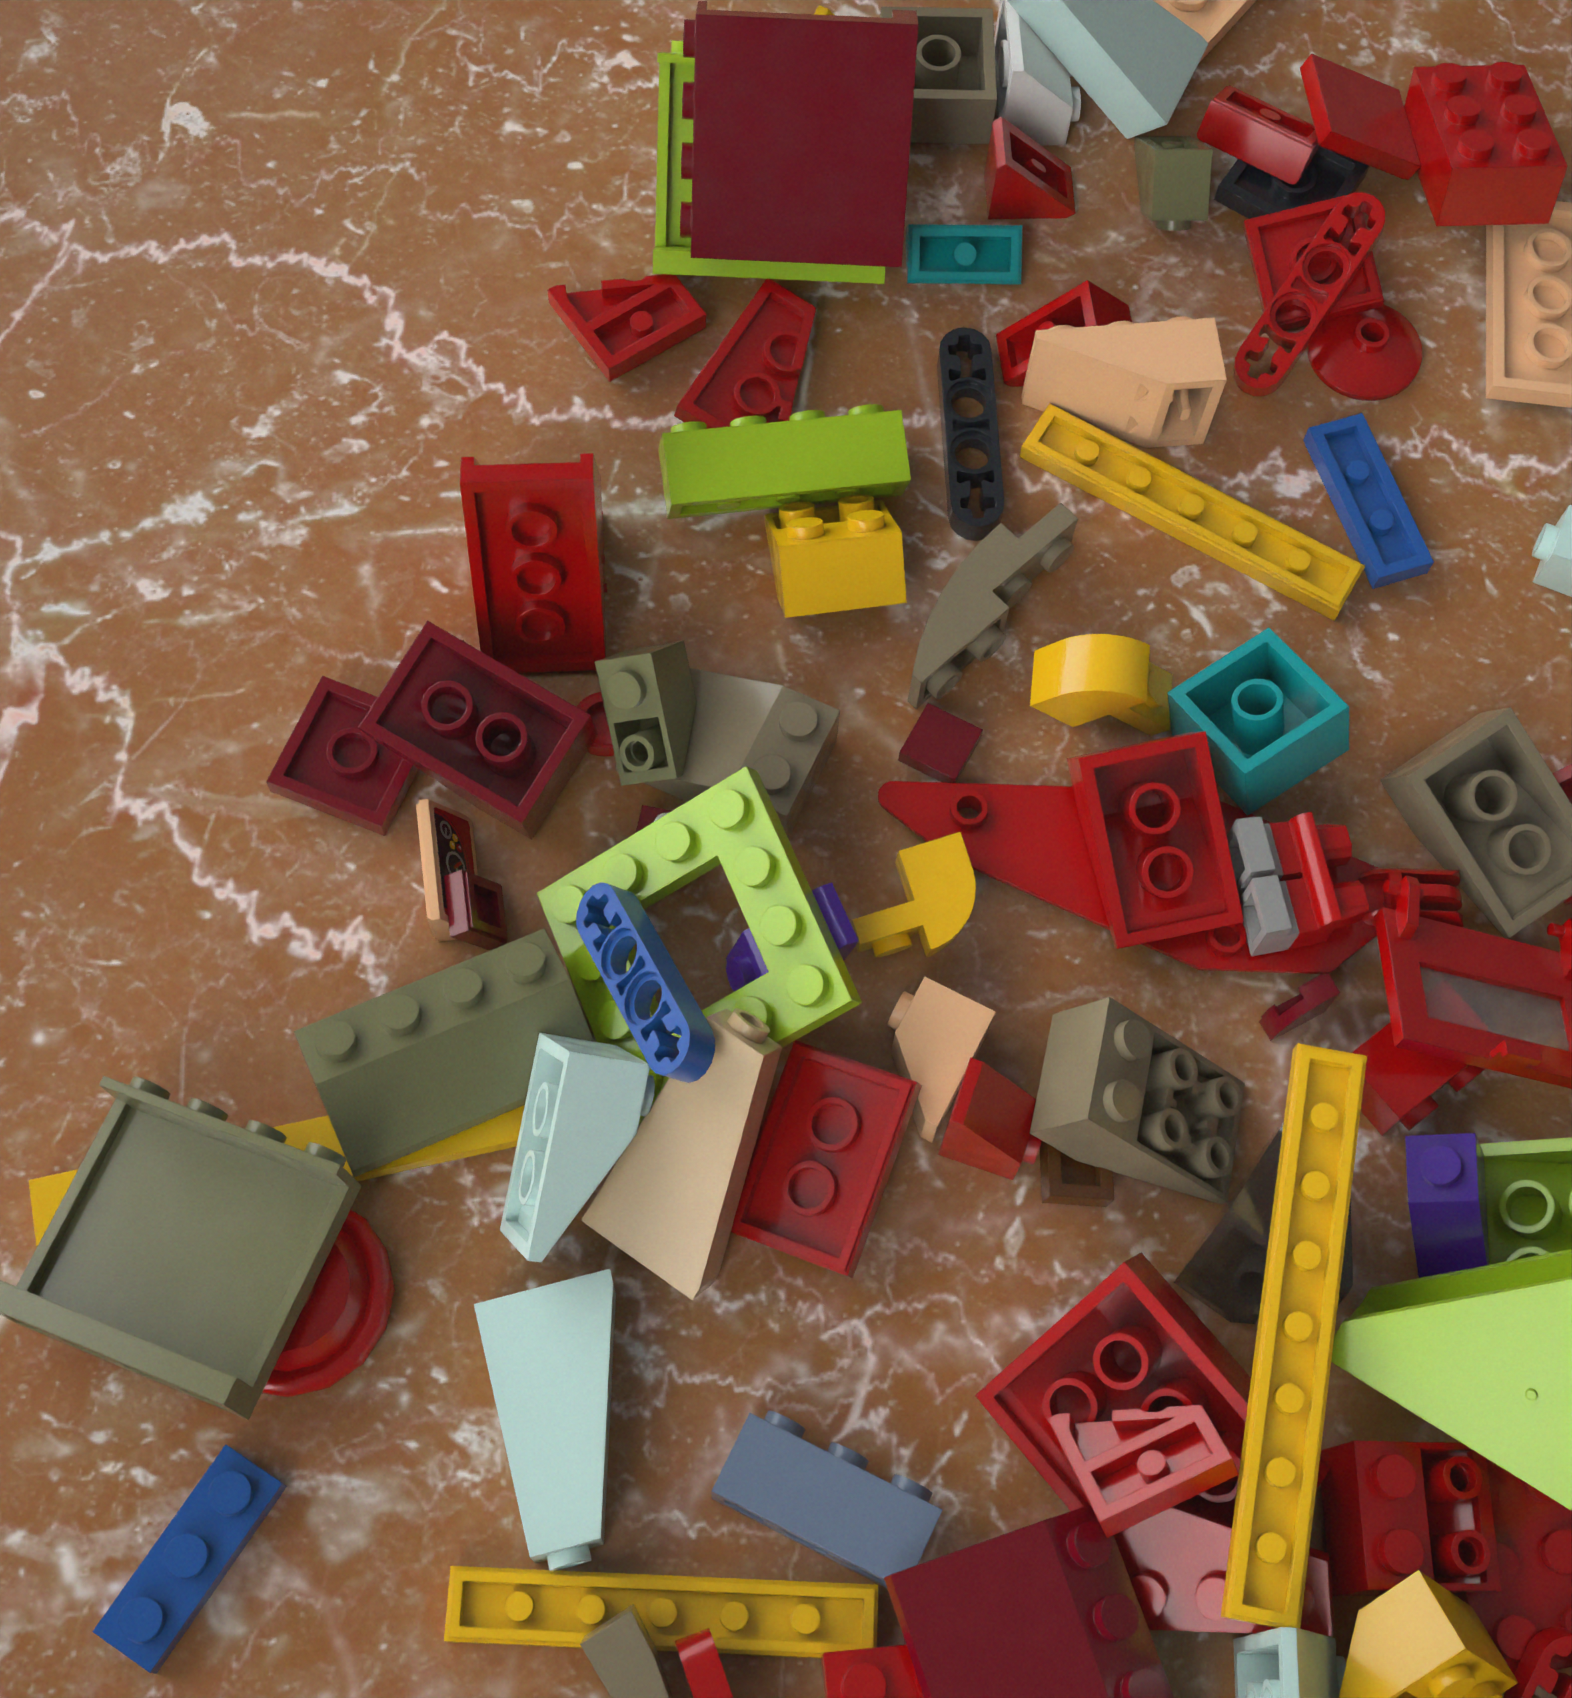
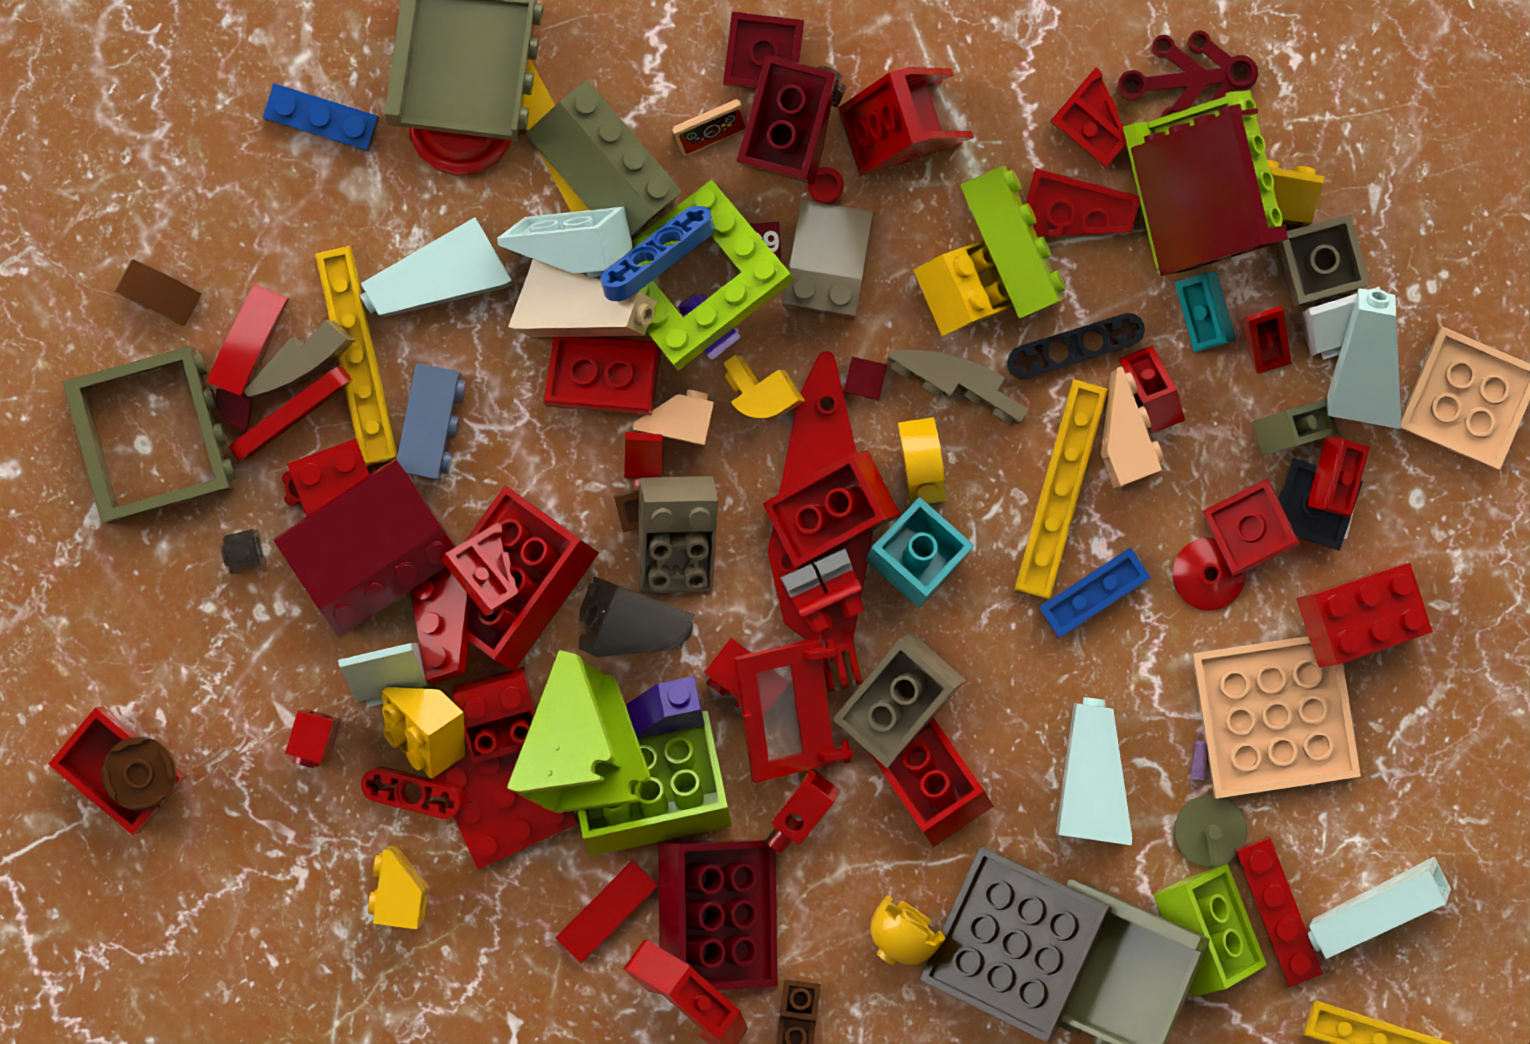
camera: 80 degrees right, 20 degrees up
(475, 910) = (690, 149): dark red tile -> none
(605, 178) = (1193, 74): none -> dark red plant
(648, 710) = (830, 209): olive slope -> none
(1294, 1340) = (566, 630): yellow tile -> none
(1312, 296) = (1222, 525): red beam -> none
(1313, 1001) = (759, 609): dark red tile -> none
(1359, 117) = (1369, 536): red tile -> none

